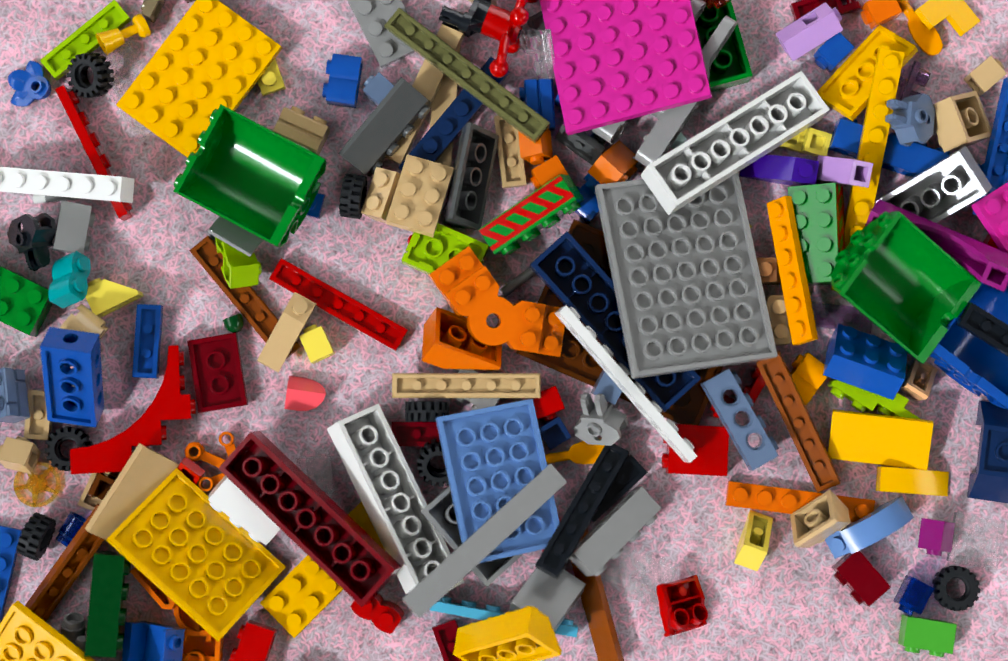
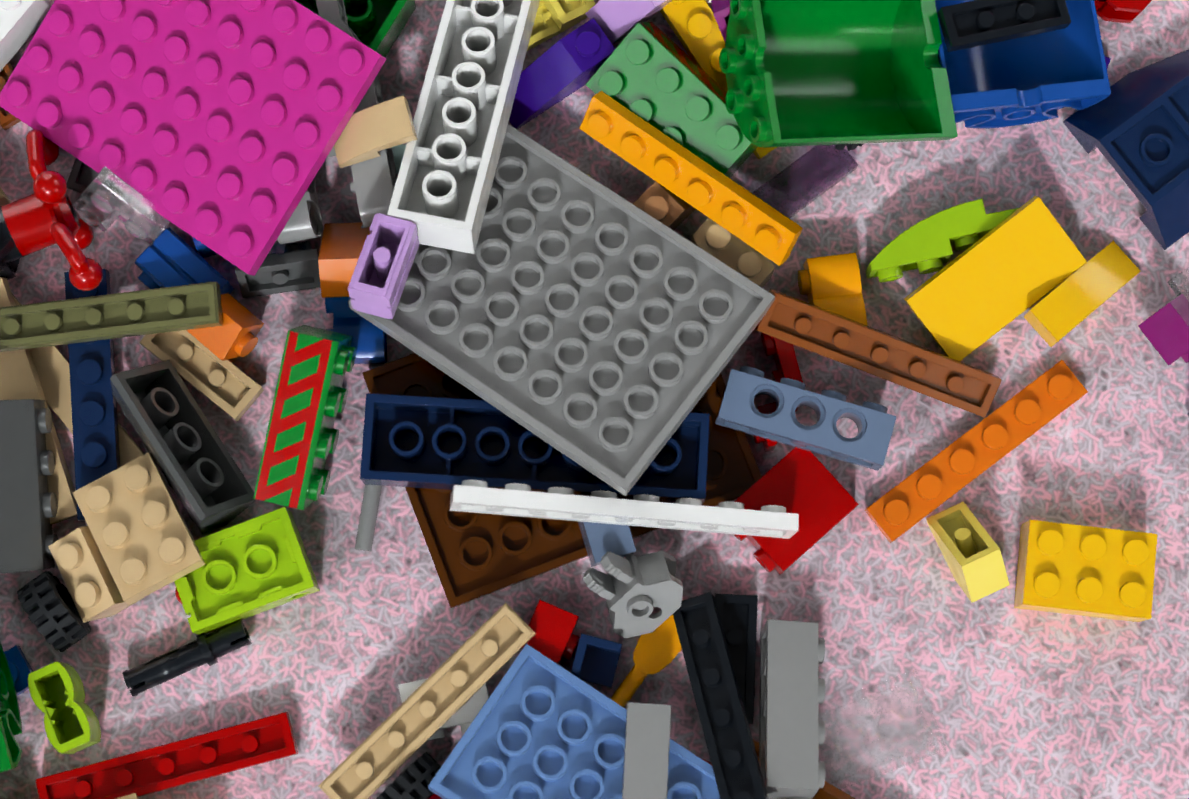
camera: 45 degrees left, 5 degrees down
(317, 246) = (67, 719): none -> lime brick
(388, 267) = (187, 657): none -> black pin
(452, 347) = (368, 663): orange slope -> none
(474, 294) = (324, 583): orange plate -> none
(546, 172) = (270, 346): orange brick -> none
(625, 185) = (383, 266): none -> lavender brick
(677, 123) = (375, 130): none -> tan slope
(682, 605) = (961, 718): red slope -> none
(795, 597) = (1085, 571): none -> yellow brick
(818, 520) = (1021, 448): tan slope -> none
(861, 578) = (1138, 469): dark red brick -> none
(865, 361) = (886, 202): blue brick -> none
(871, 528) = (1091, 399): medium blue arch -> none
(919, 380) = (969, 166): light nougat slope -> none

